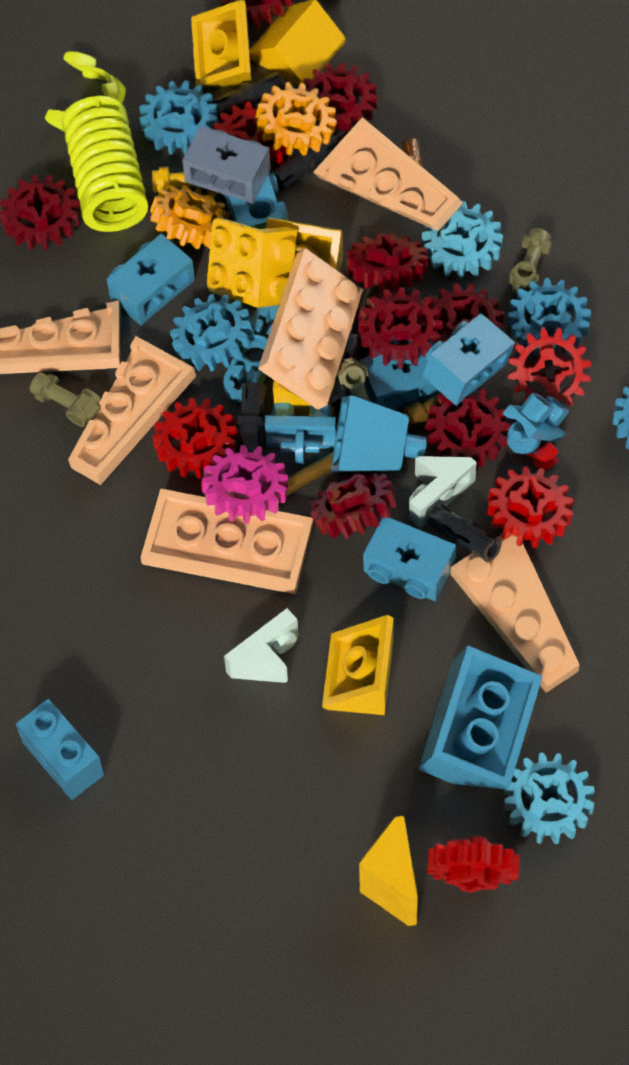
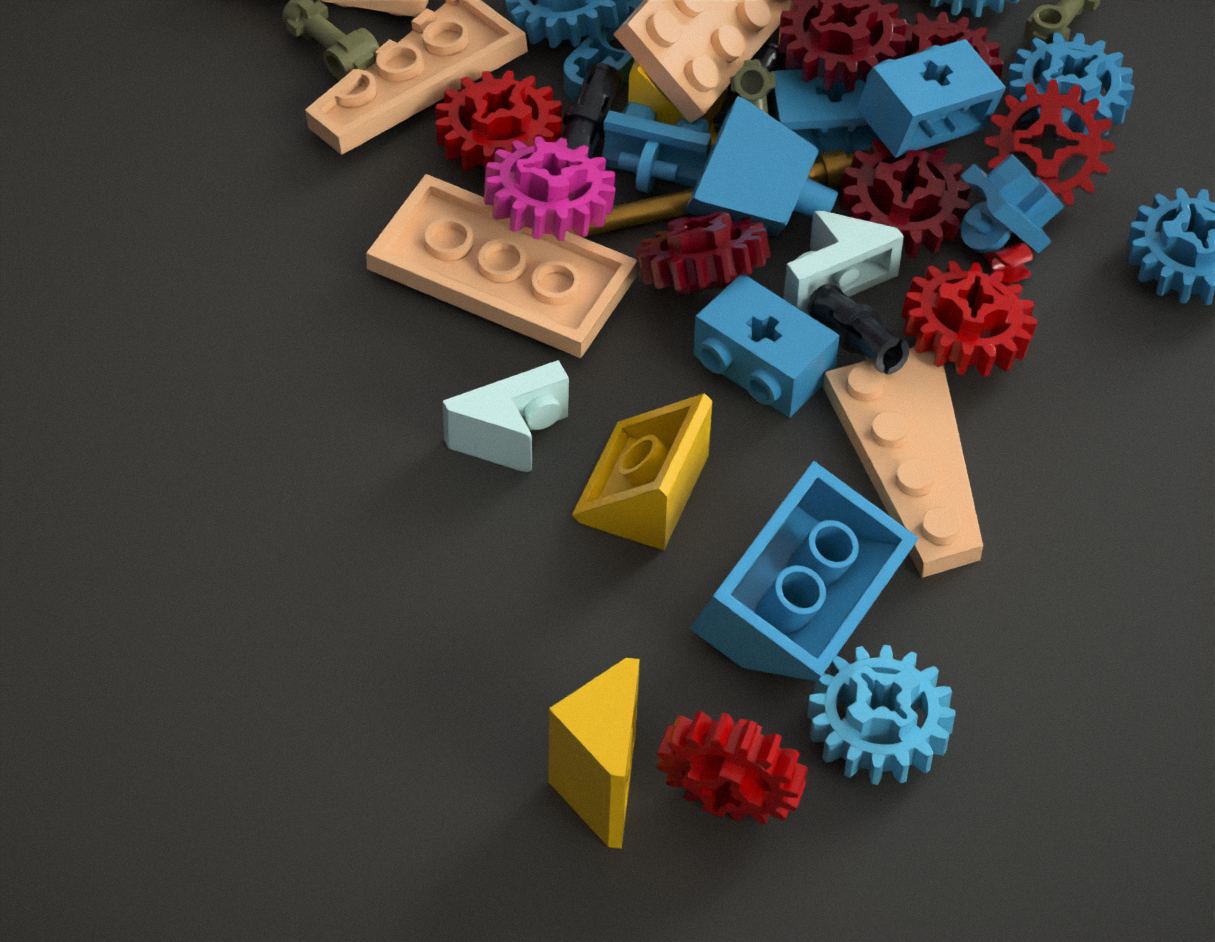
camera: 10 degrees right, 10 degrees down
(60, 749) = (158, 473): dark azure brick -> none

